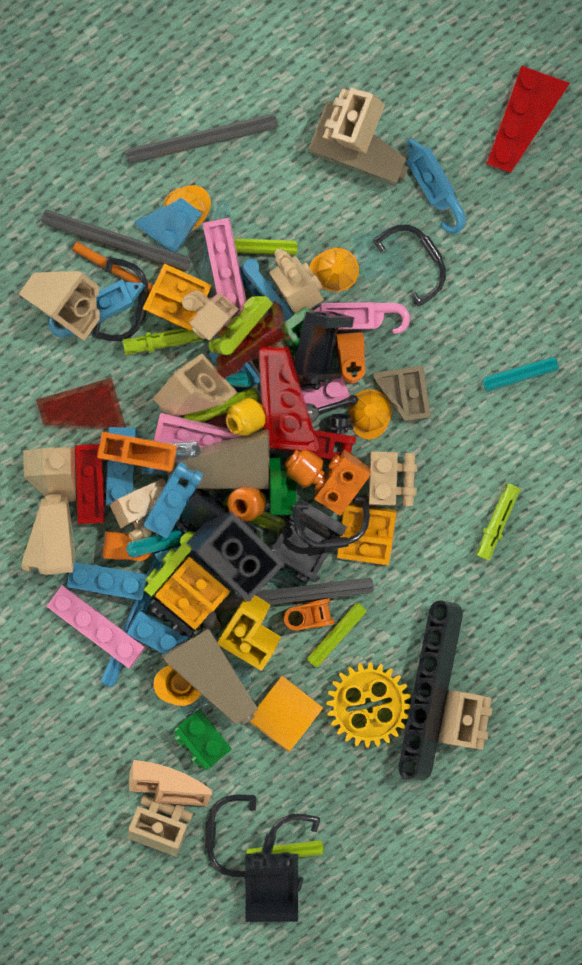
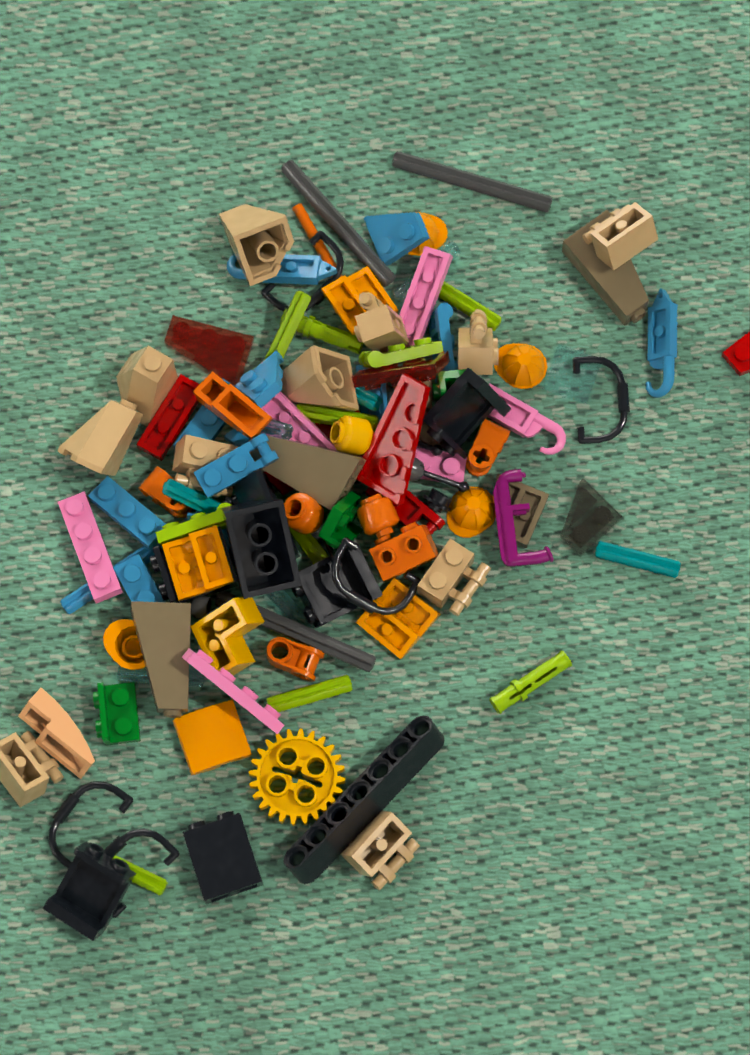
camera: 35 degrees right, 15 degrees down
(136, 358) = (289, 323): none -> lime axle
(146, 414) = (264, 381): none -> dark azure wing
(274, 673) = (225, 680): none -> bright pink plate
(351, 799) = (222, 857): none -> black panel
(406, 412) = (505, 523): none -> magenta piece
(463, 365) = (588, 519): none -> clear smoke wing

